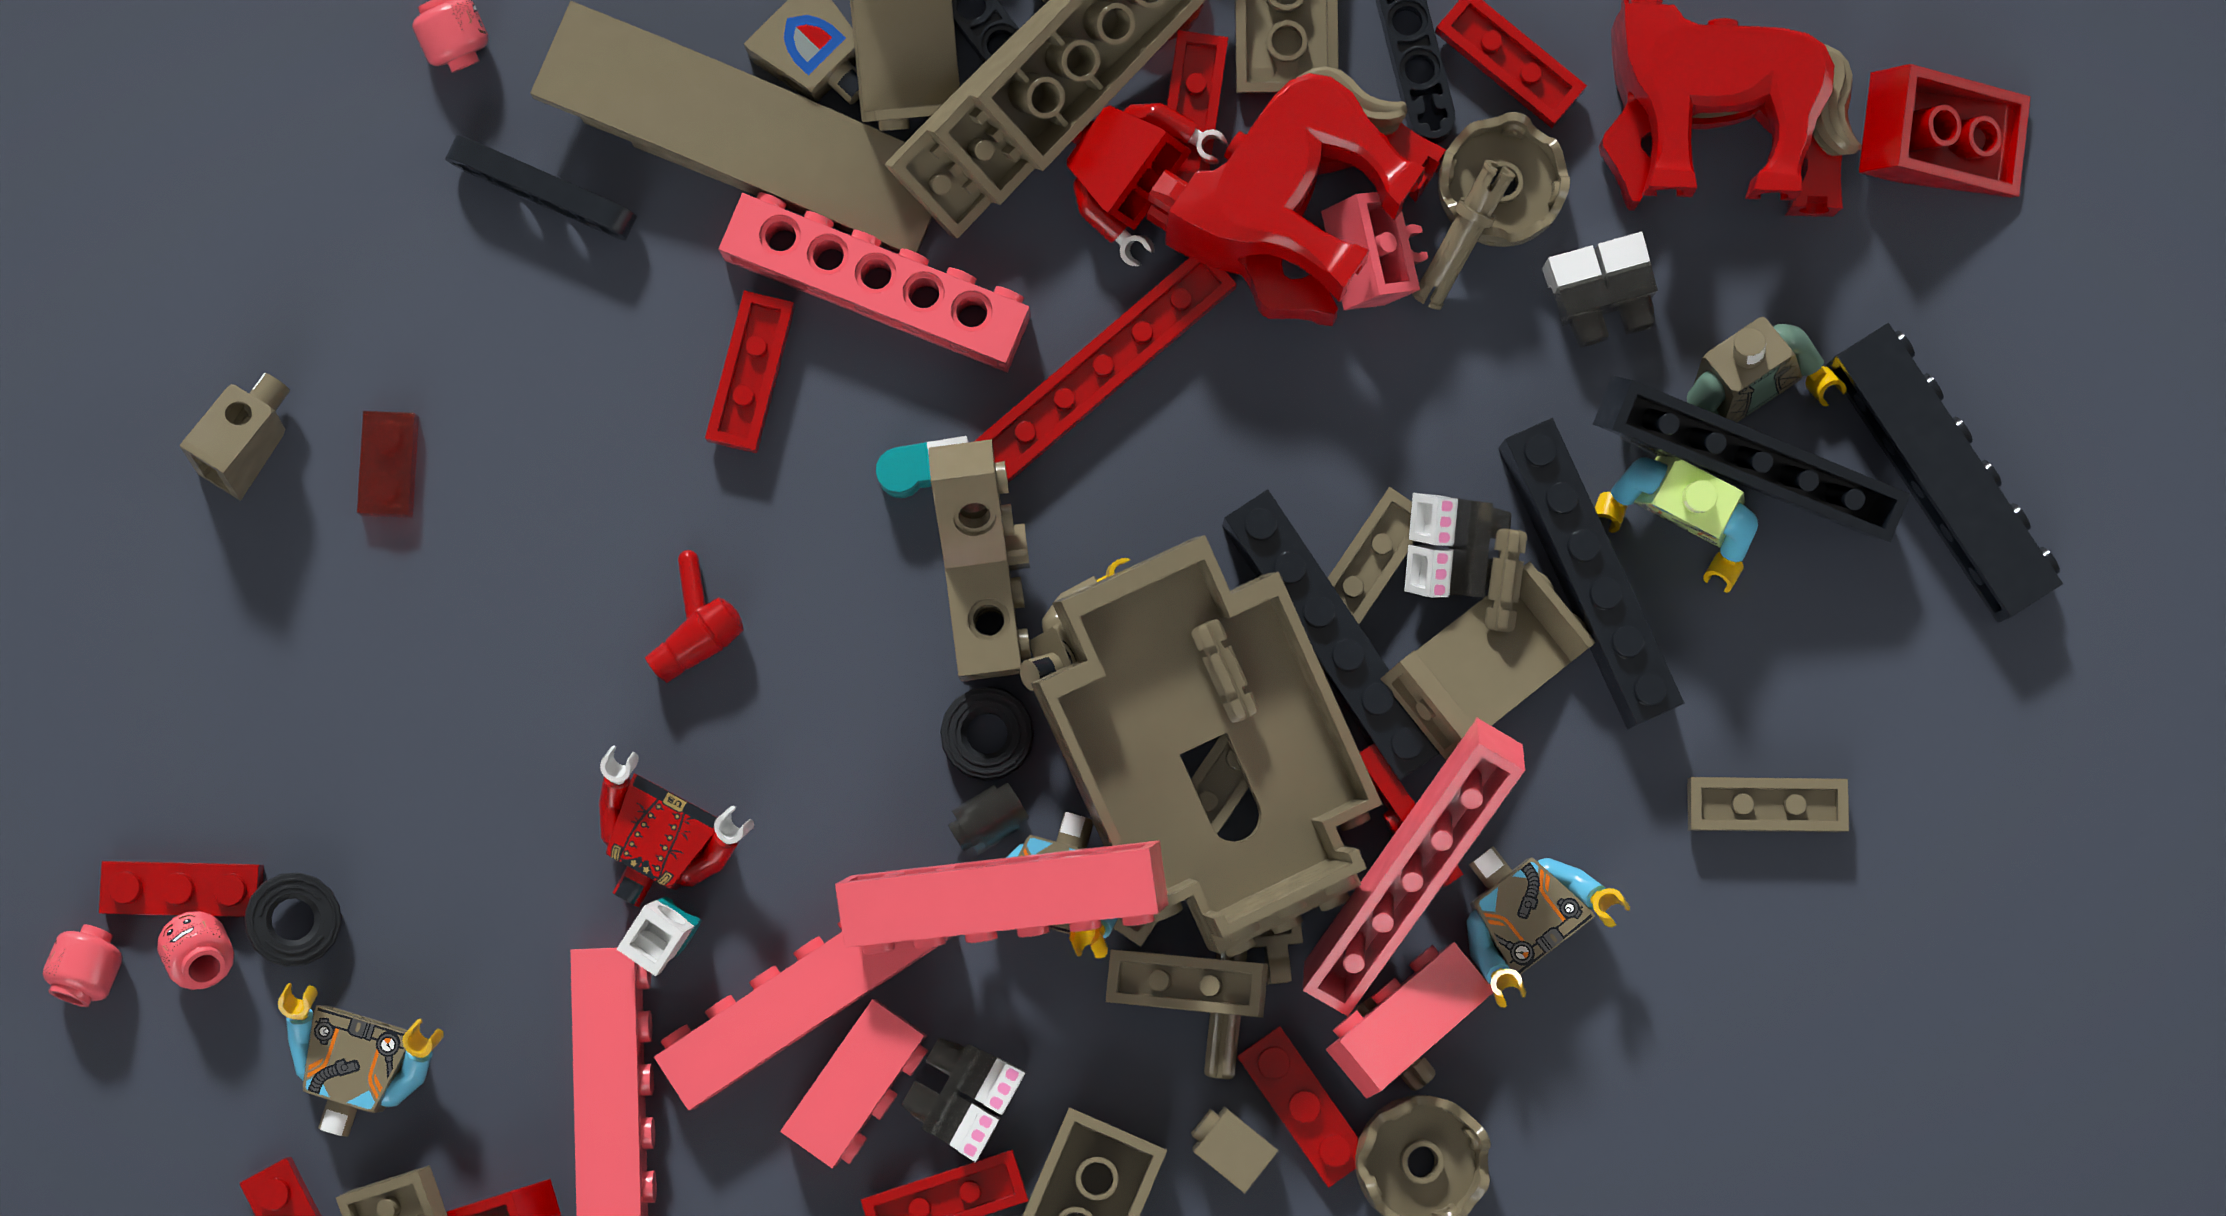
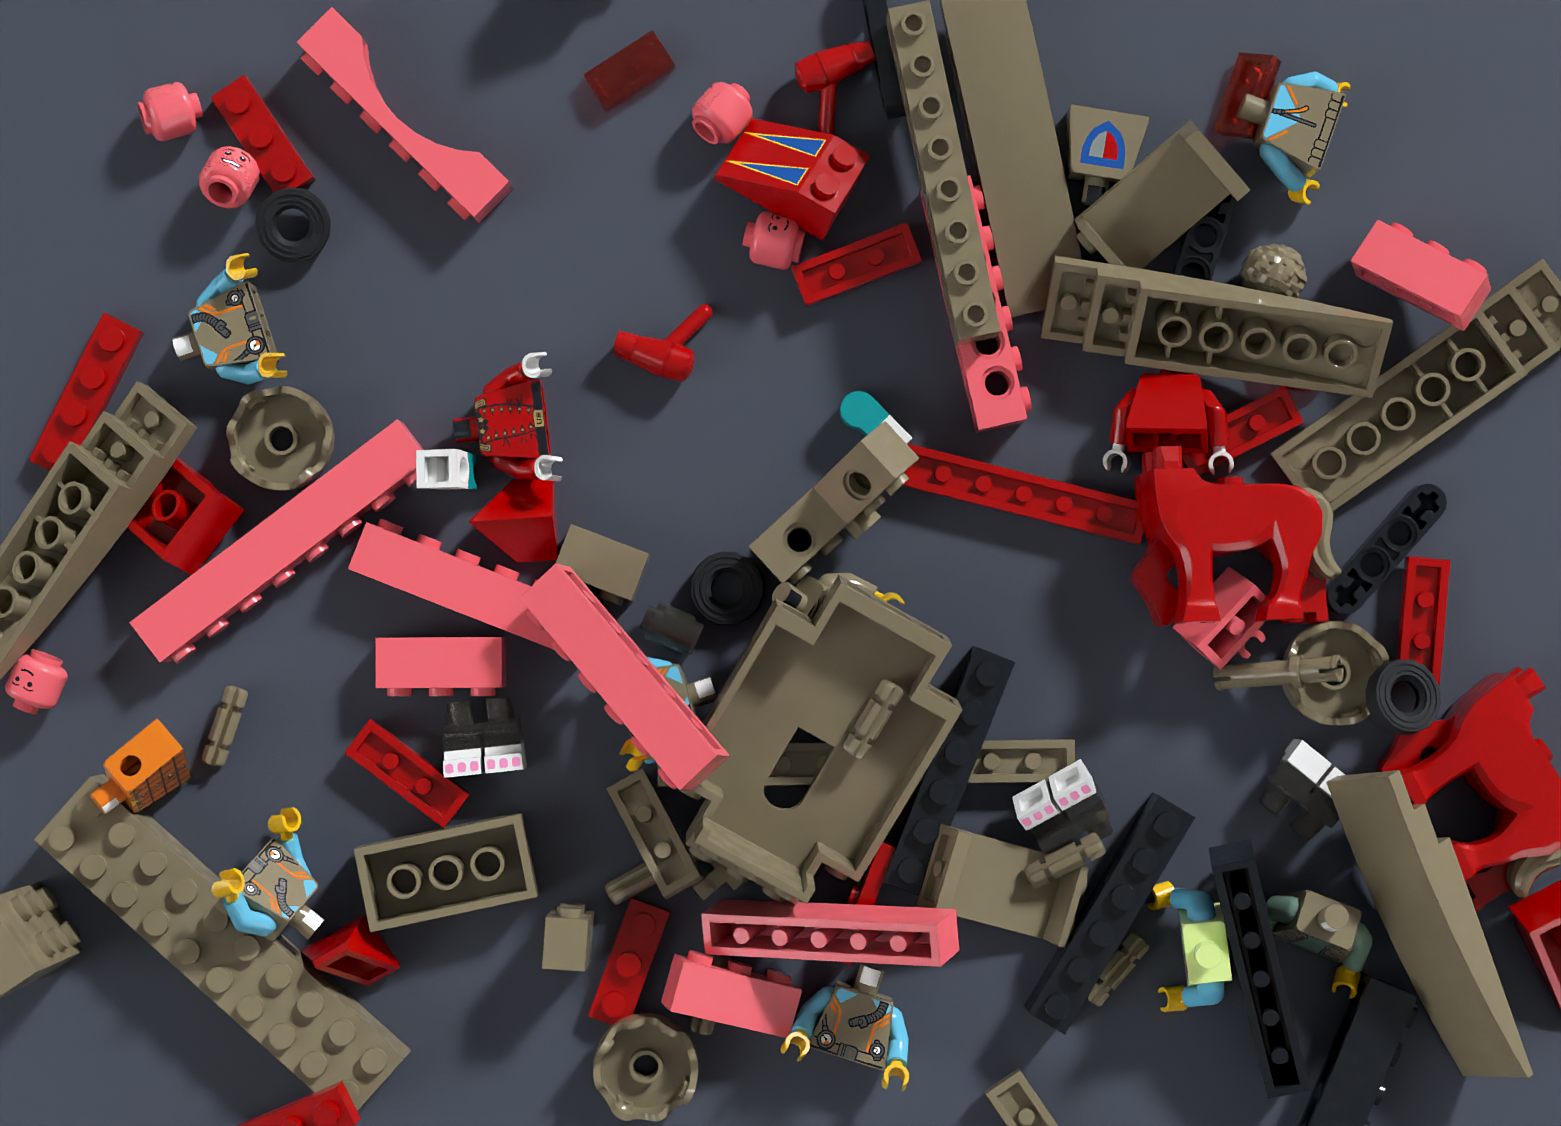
camera: 50 degrees right, 5 degrees up
(371, 706) = (344, 56): none -> coral arch
(466, 1096) = (252, 431): none -> dark tan plate
(498, 399) = (722, 113): none -> coral head
(532, 269) = (826, 69): none -> red piece
(612, 367) = (794, 172): none -> red slope
(666, 436) = (774, 241): none -> coral head
(720, 216) = (942, 173): none -> dark tan brick
(768, 895) = (522, 520): none -> red slope
(872, 840) = (604, 563): none -> dark tan brick
(1578, 101) = (1425, 690): none -> black tyre
(1654, 605) = (1118, 968): none -> dark tan axle
(1820, 255) = (1430, 921): none -> dark tan slope

